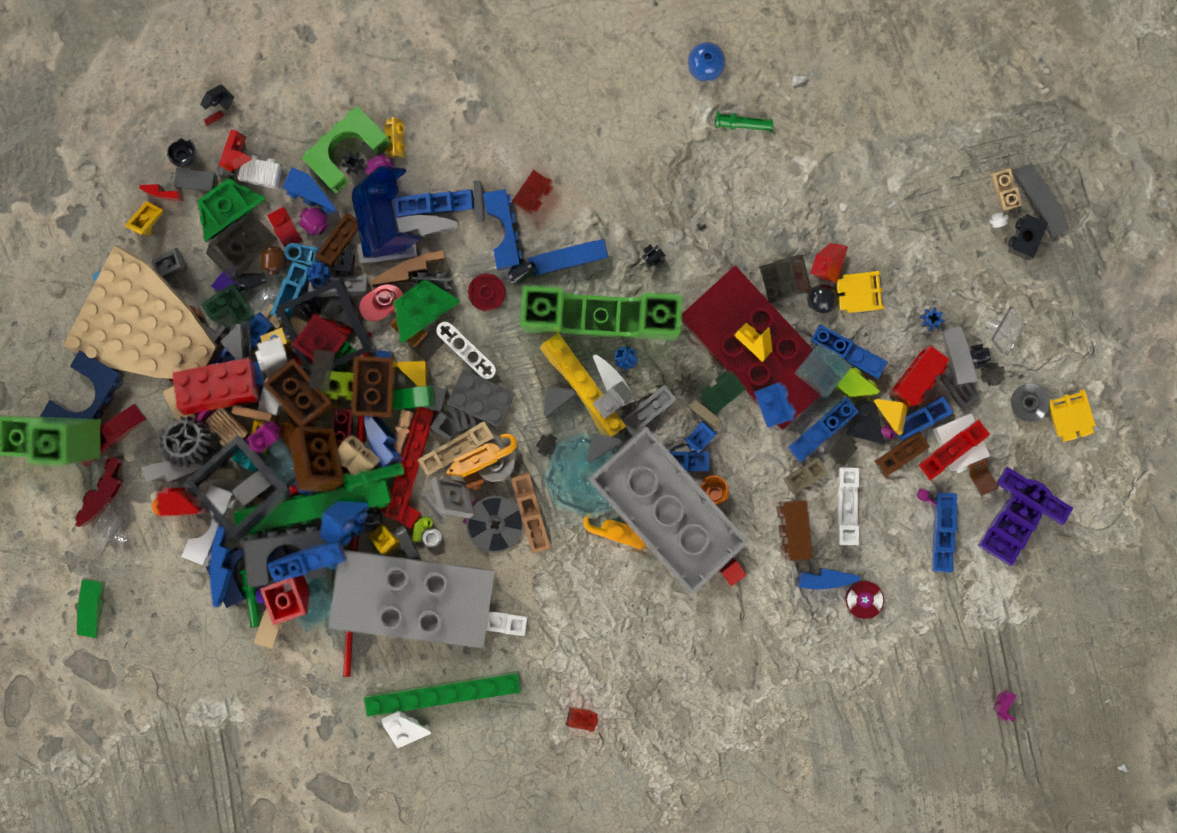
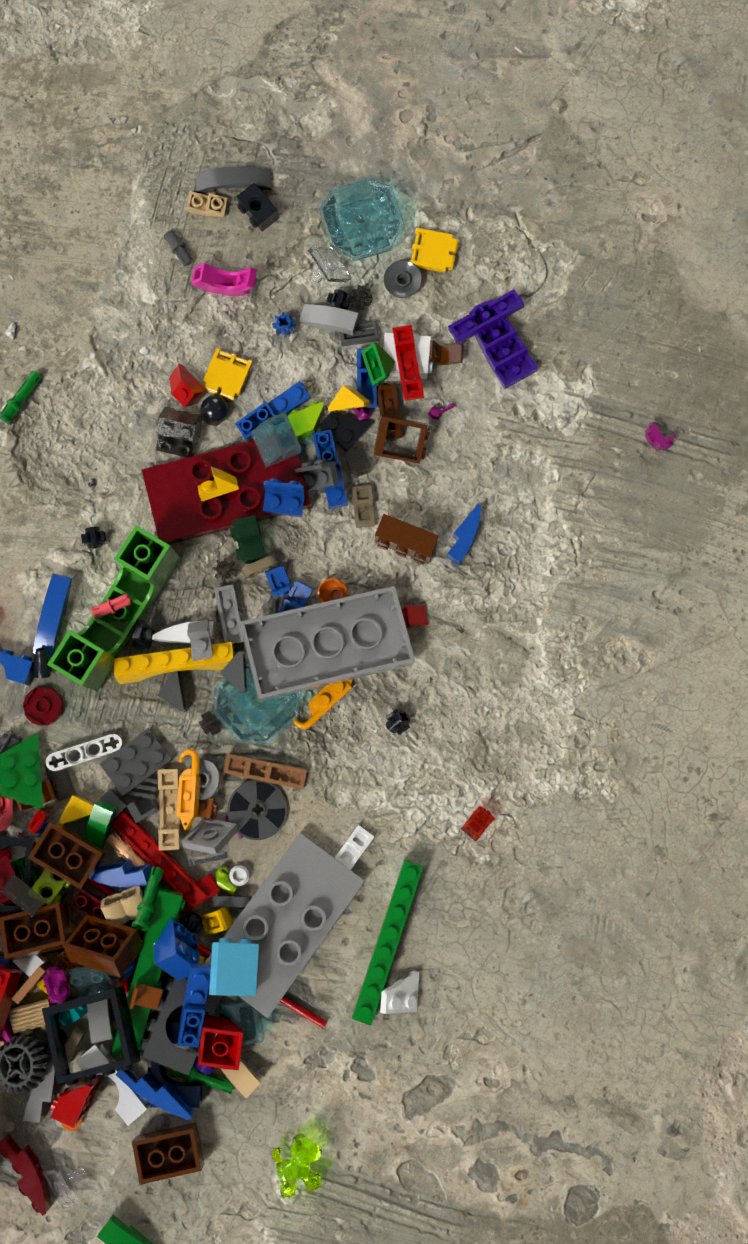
camera: 60 degrees left, 5 degrees down
(176, 601) = (168, 1153): none -> reddish brown brick
(234, 714) = (303, 1153): none -> clear neon green animal
(293, 516) = (146, 996): none -> dark orange bracket
(354, 579) = (234, 968): none -> medium azure brick
(389, 345) = (38, 821): none -> red slope
(591, 346) = (142, 635): none -> black bracket
(602, 307) = (111, 606): none -> coral axle
(626, 358) = (171, 610): blue gear -> none
(632, 605) = (397, 722): none -> black gear
(812, 424) = (319, 475): none -> dark grey bracket
(848, 506) = (410, 483): white slope -> none
(864, 599) = (501, 512): dark red tile -> none
(879, 501) = (381, 435): none -> reddish brown window
(919, 376) = (328, 359): red brick -> none
(939, 423) = (377, 363): none -> green slope
(942, 245) = (224, 282): none -> dark pink arch
(944, 532) = (477, 411): blue slope -> none
(952, 186) = (178, 248): none -> dark grey axle
(998, 220) = (229, 223): white plate -> none
(1085, 333) = (366, 201): none -> clear light blue piece

